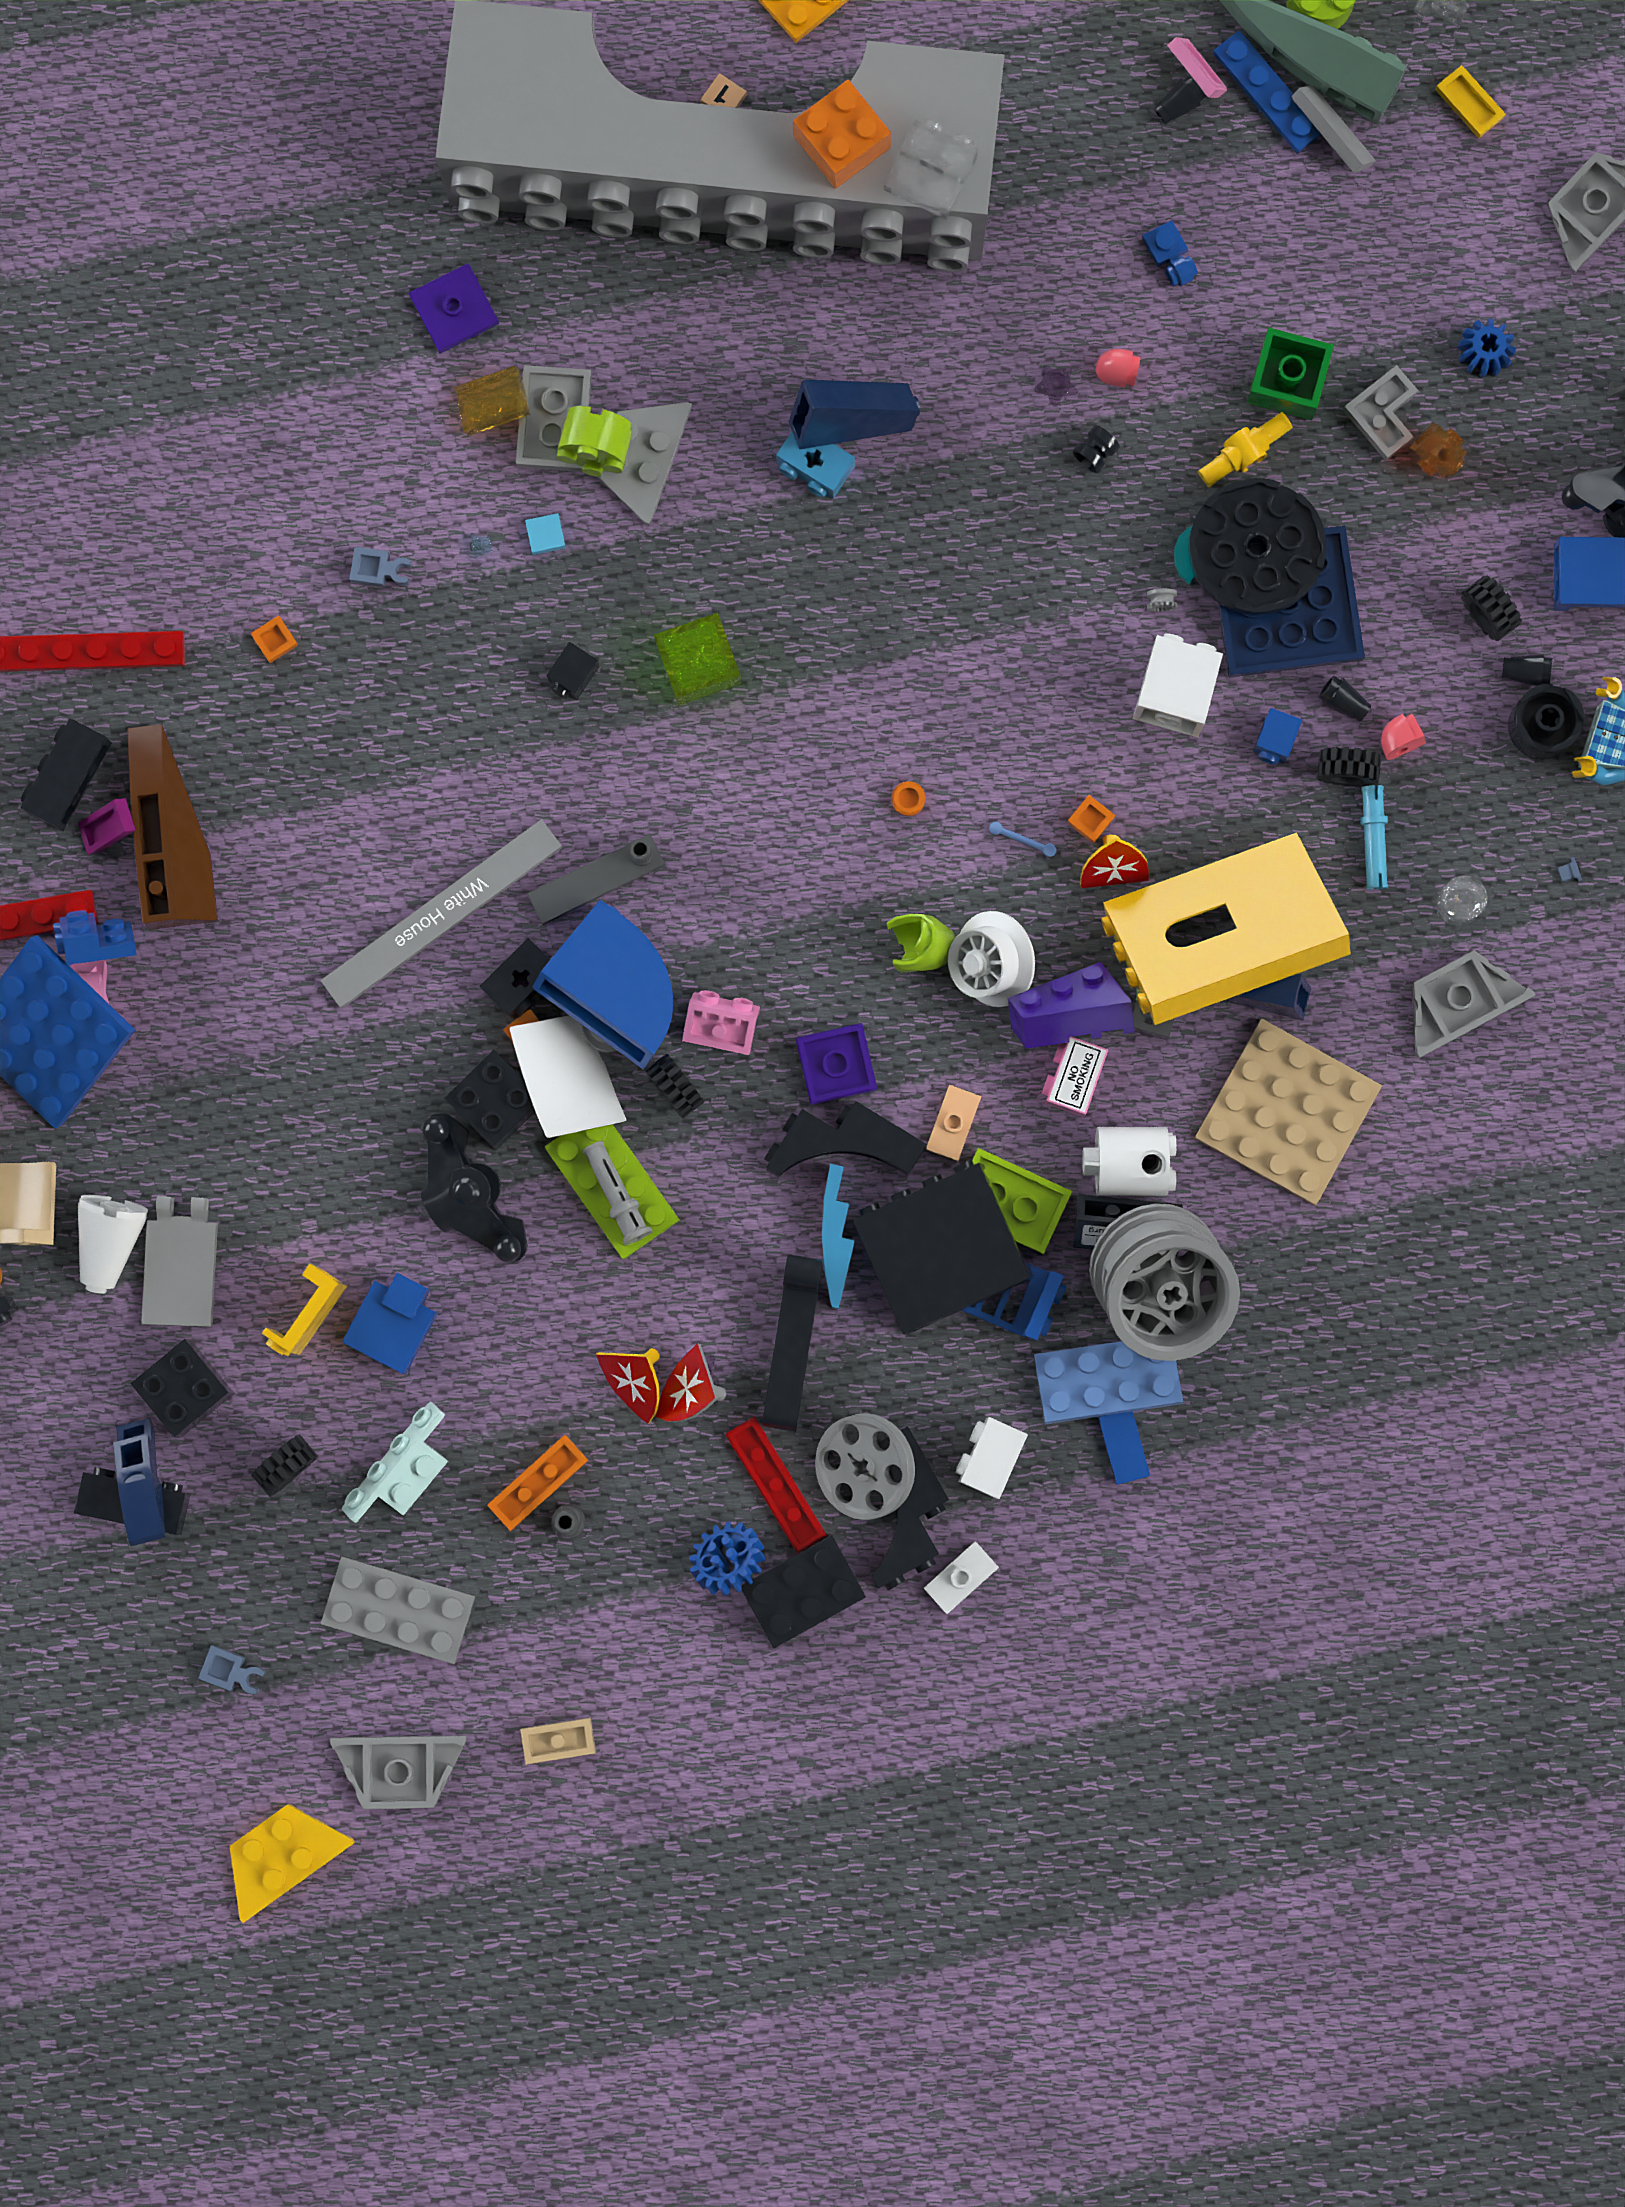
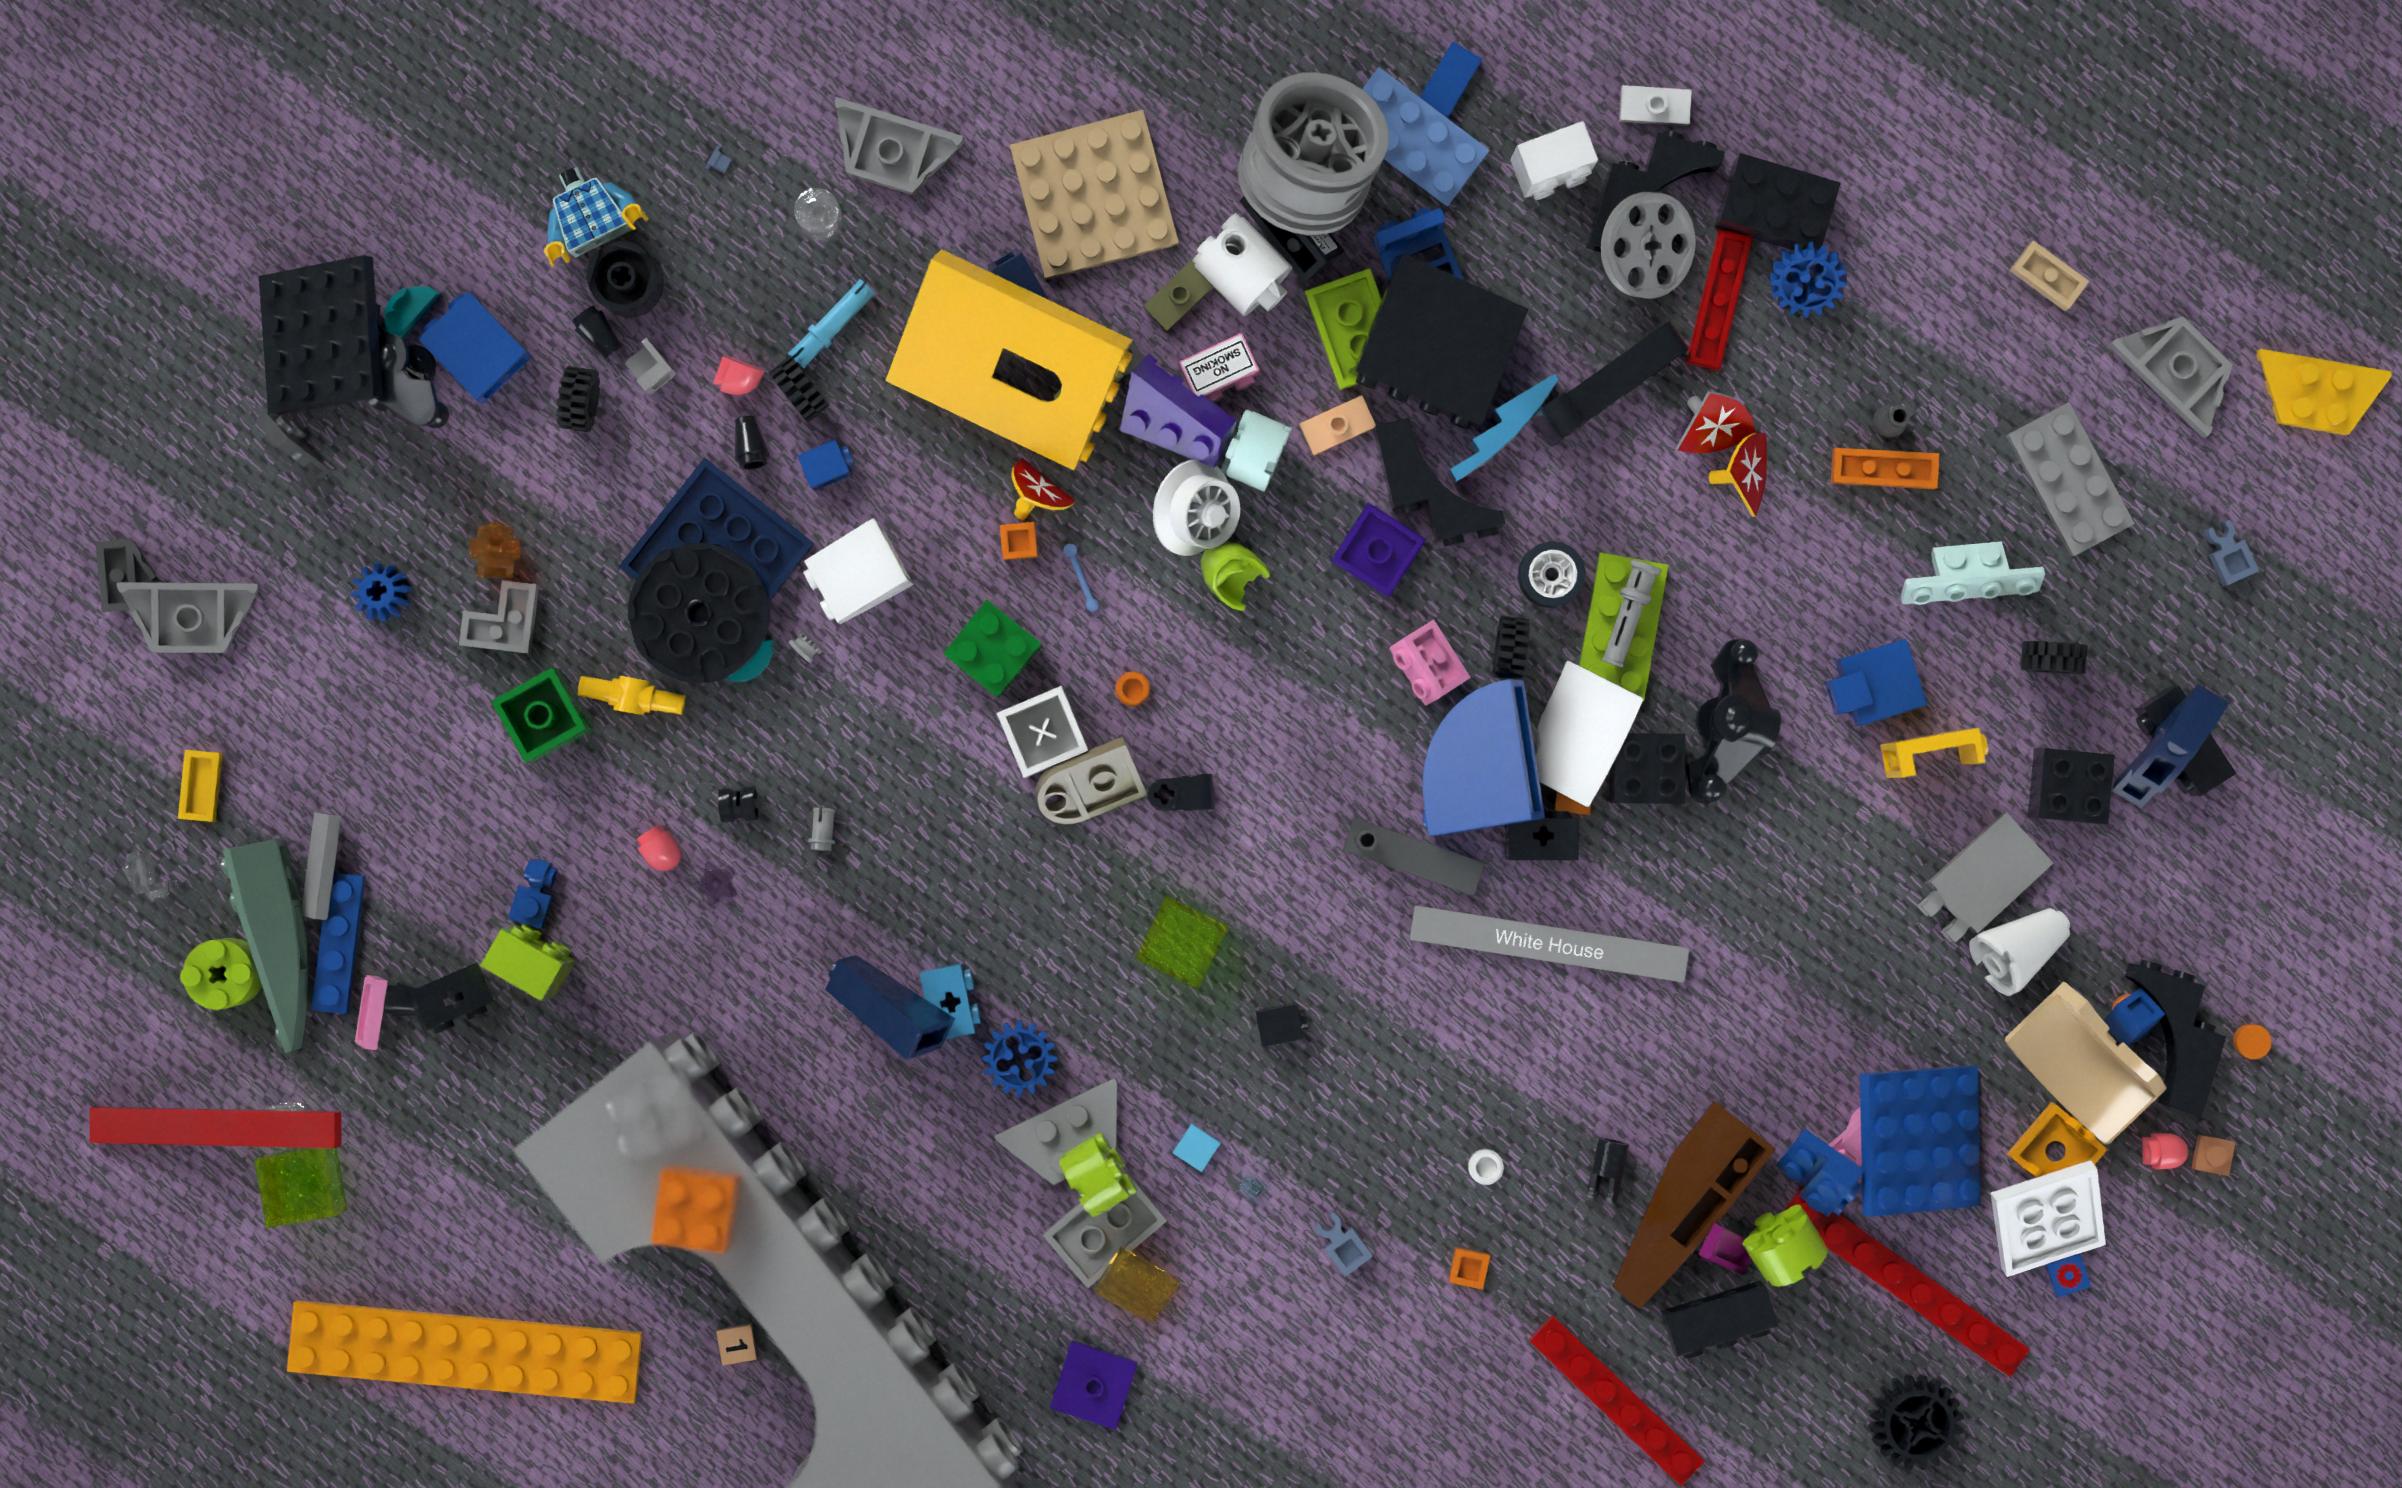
camera: 140 degrees left, 5 degrees up
(69, 866) = (1785, 1246): none -> lime brick
(247, 803) = (1609, 1163): none -> black hinge
(332, 719) = (1485, 1166): none -> white tile
(698, 1150) = (1564, 562): none -> wheel
(745, 464) = (1000, 1050): none -> blue gear
(796, 764) = (1189, 793): none -> black piece
(870, 701) = (1090, 784): none -> dark tan plate
(938, 703) = (1042, 731): none -> white brick
(990, 1042) = (1255, 450): none -> light aqua brick
(1021, 490) = (822, 829): none -> light grey pin
(1031, 726) = (993, 649): none -> green brick
(1126, 202) = (528, 961): none -> lime brick
(1152, 149) = (430, 1005): none -> black brick
(1156, 1098) = (1178, 296): none -> olive plate
(1466, 682) = (650, 367): none -> light grey panel

